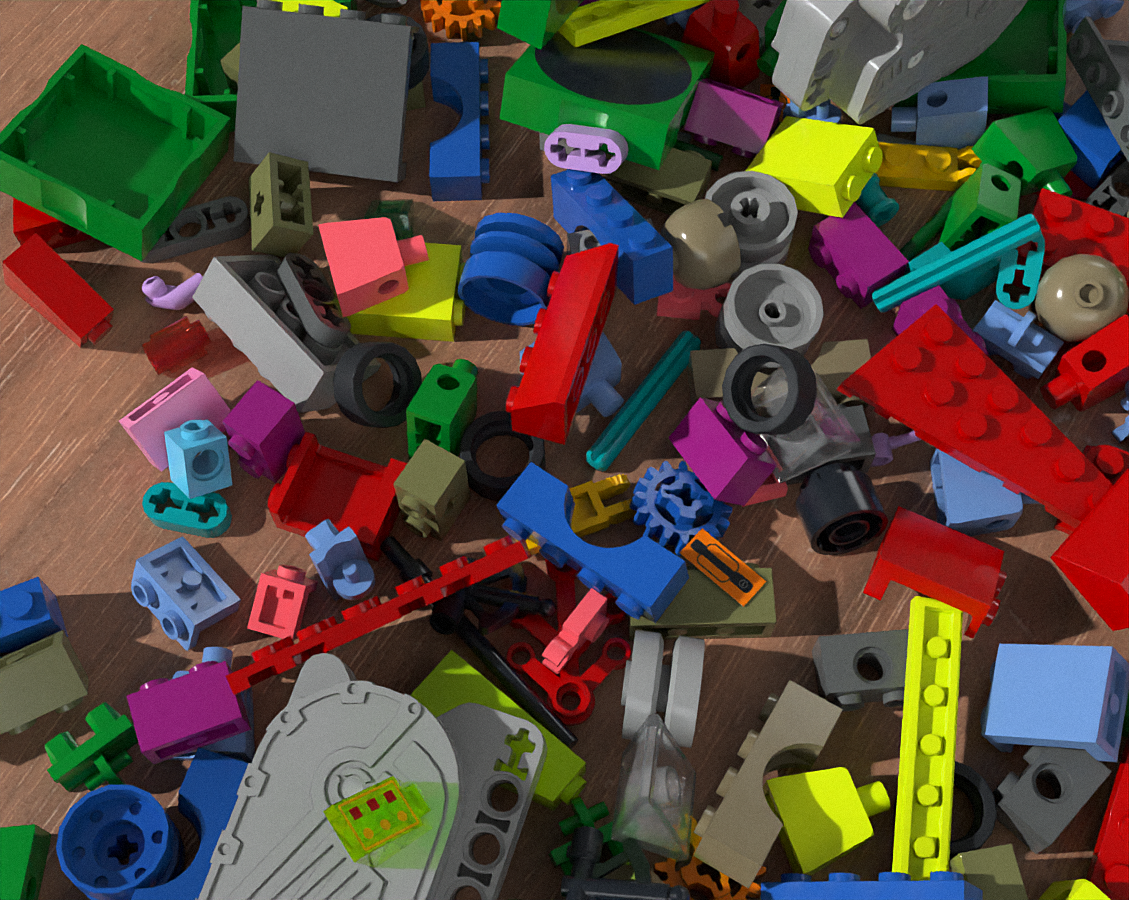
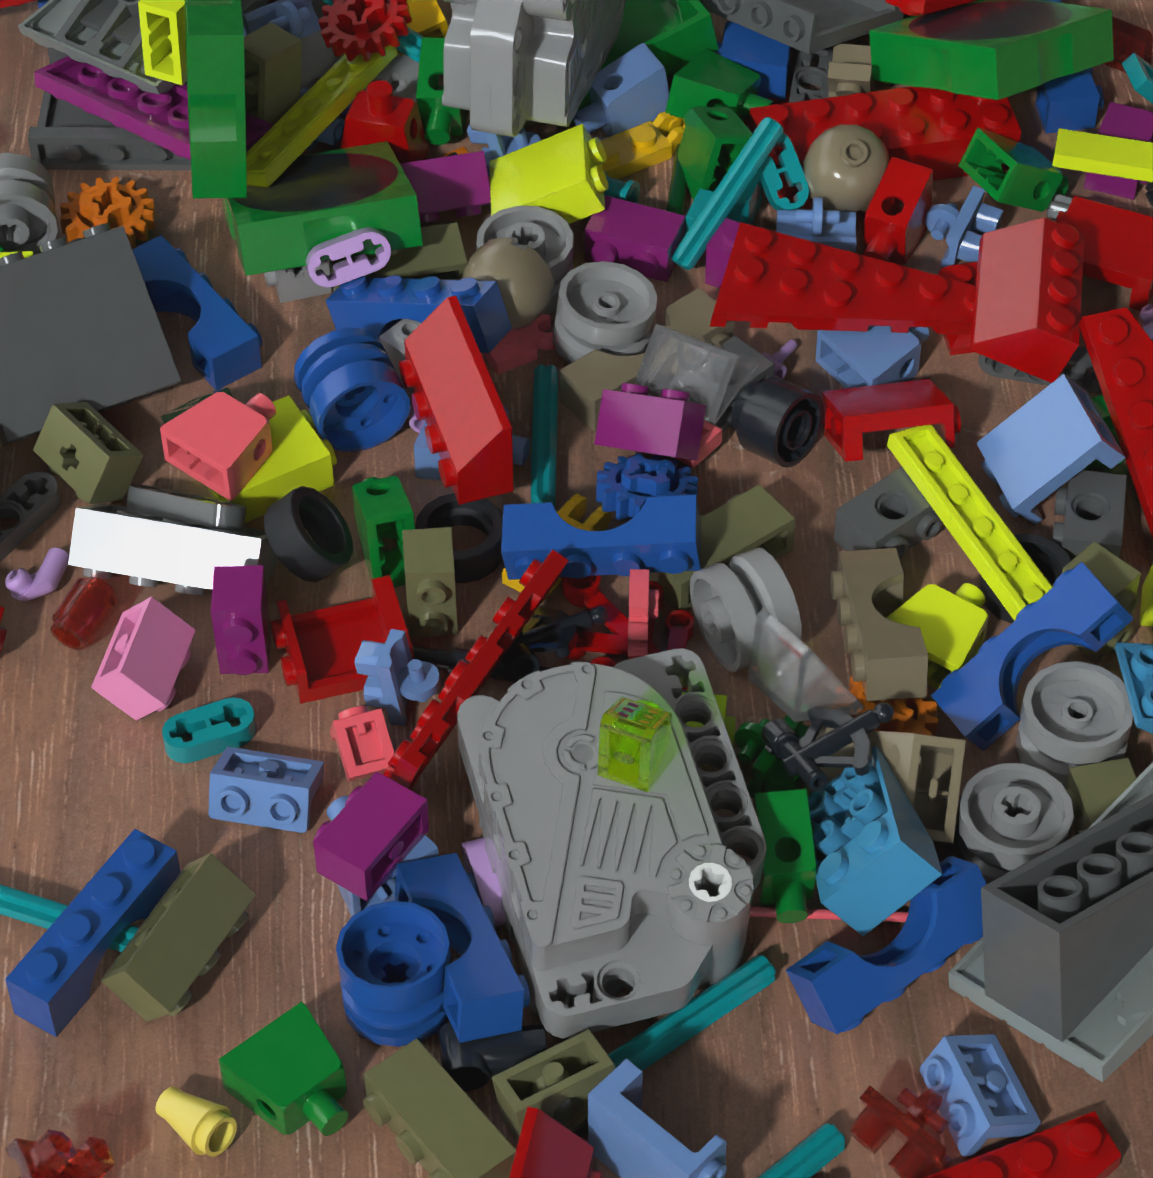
camera: 35 degrees left, 15 degrees down
(97, 758) = (303, 937): green hips -> none
(207, 471) = (195, 670): medium azure brick -> none
(722, 567) = (726, 503): orange sticker -> none
(739, 380) = (627, 338): black tyre -> none

